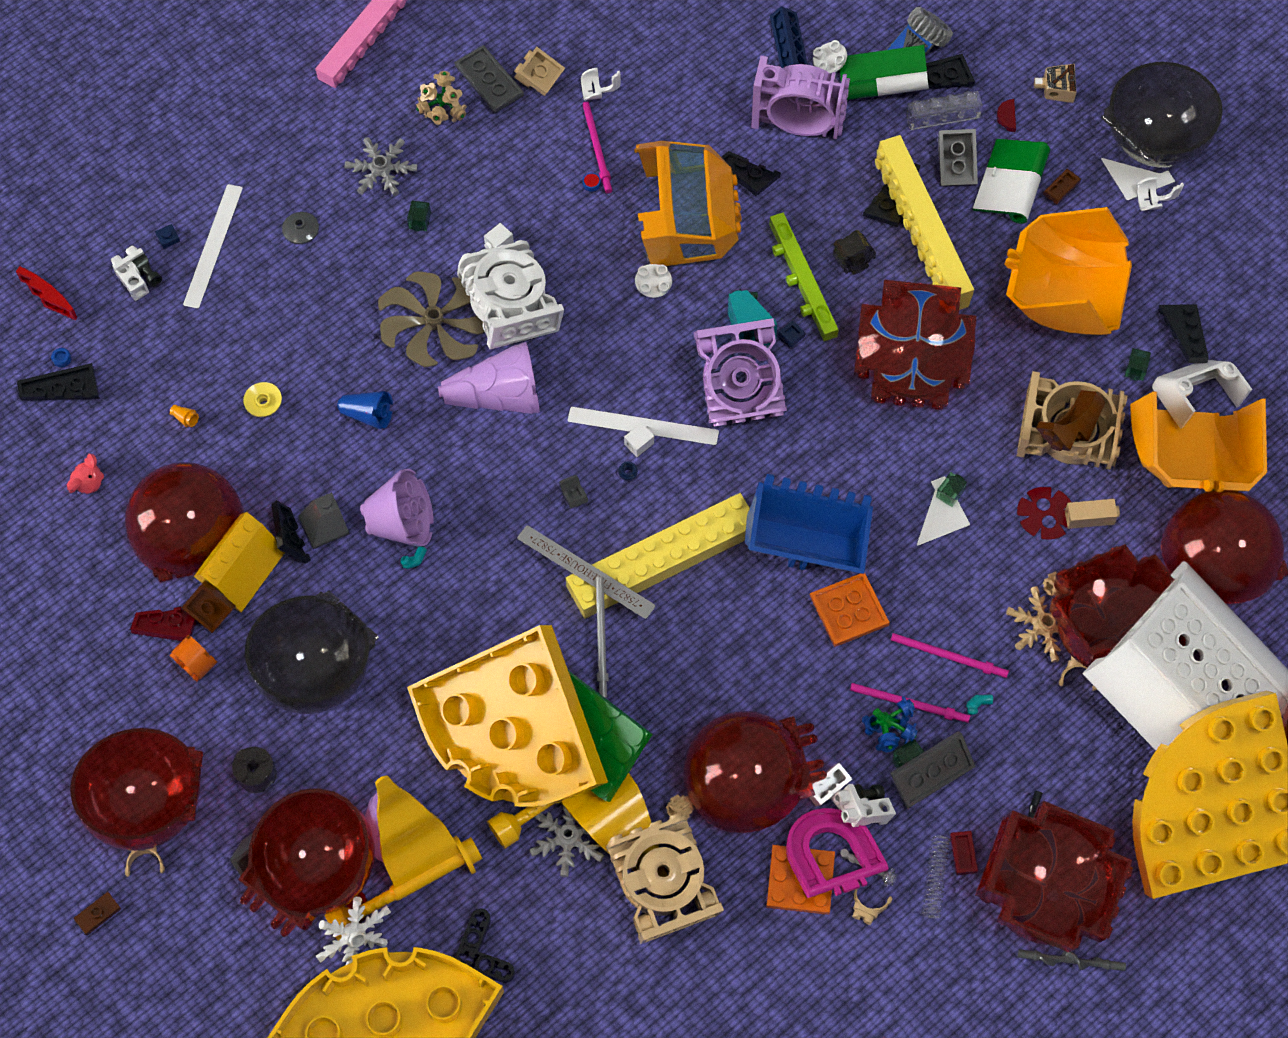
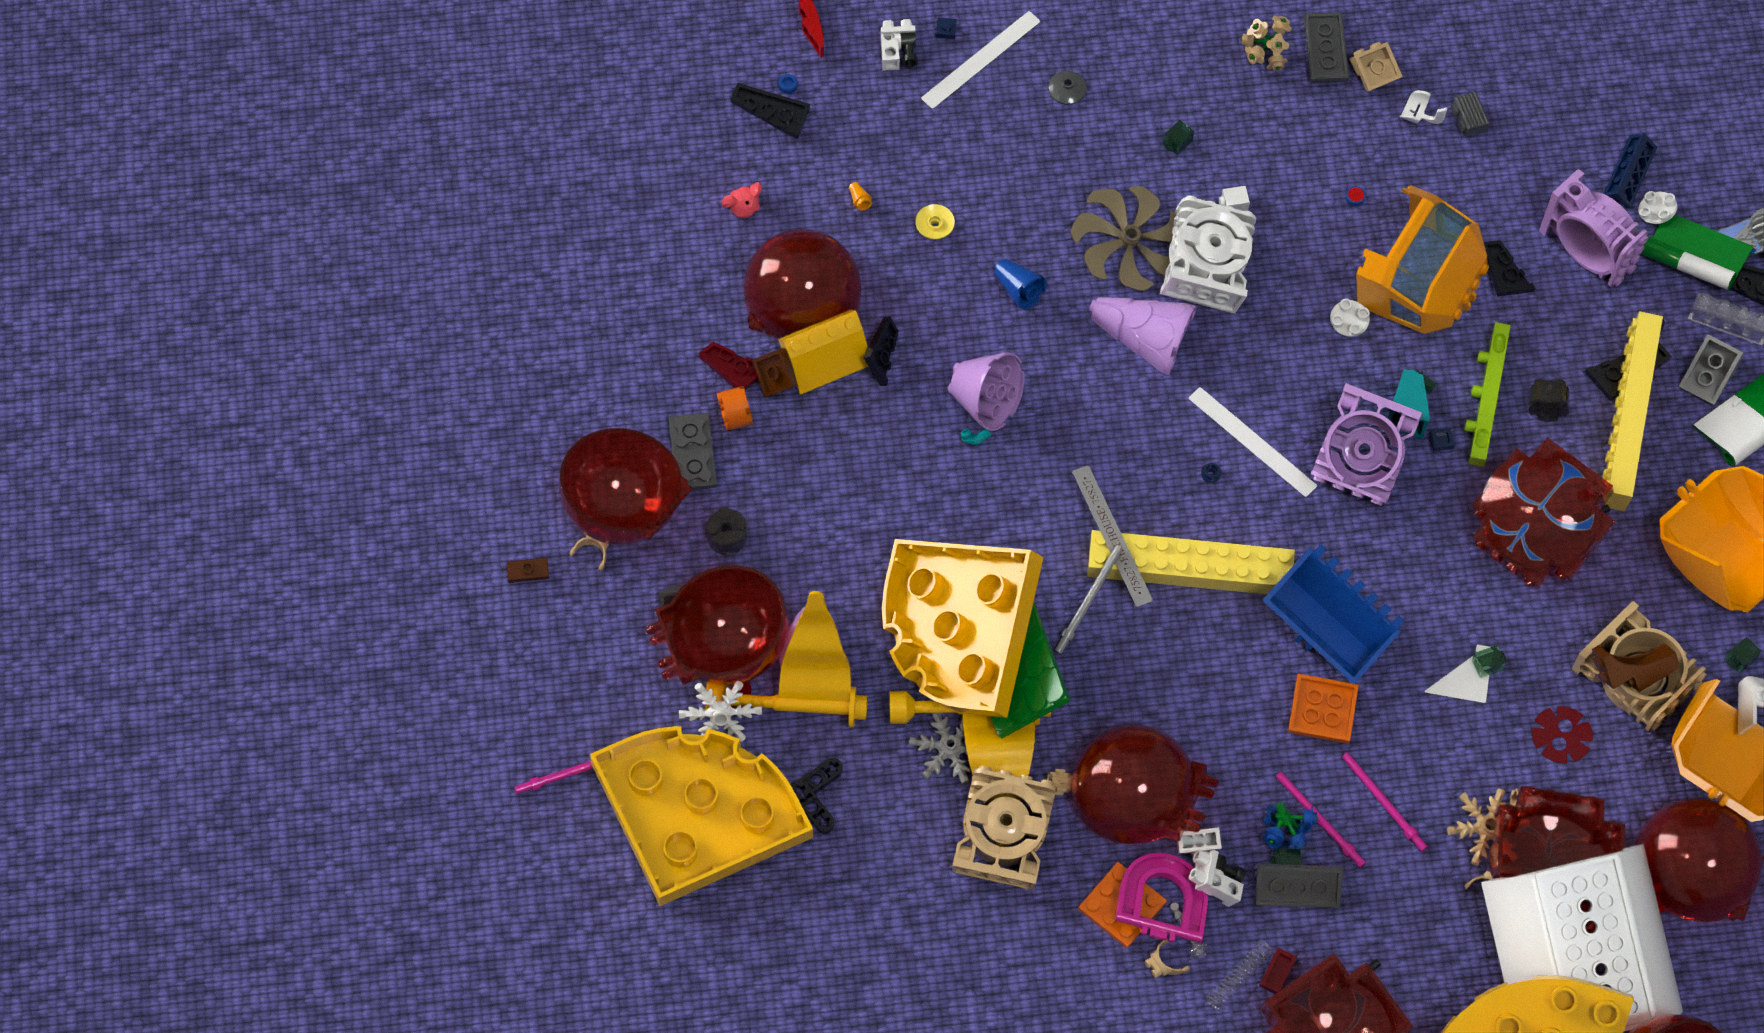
camera: 30 degrees right, 0 degrees up
(178, 715) = (693, 449): none -> dark grey piece
(308, 653) = (830, 460): clear smoke windscreen -> none
(323, 521) = (918, 358): dark grey slope -> none
(380, 166) = (1174, 72): light grey piece -> none
(573, 491) = (1150, 461): dark grey bracket -> none
(604, 173) = (1371, 196): dark pink bar -> none
(638, 67) = (1470, 114): none -> dark grey brick
(639, 439) = (1239, 451): white brick -> none
(978, 700) = (1381, 854): teal arm -> none
(1091, 513) = (1602, 759): tan brick -> none

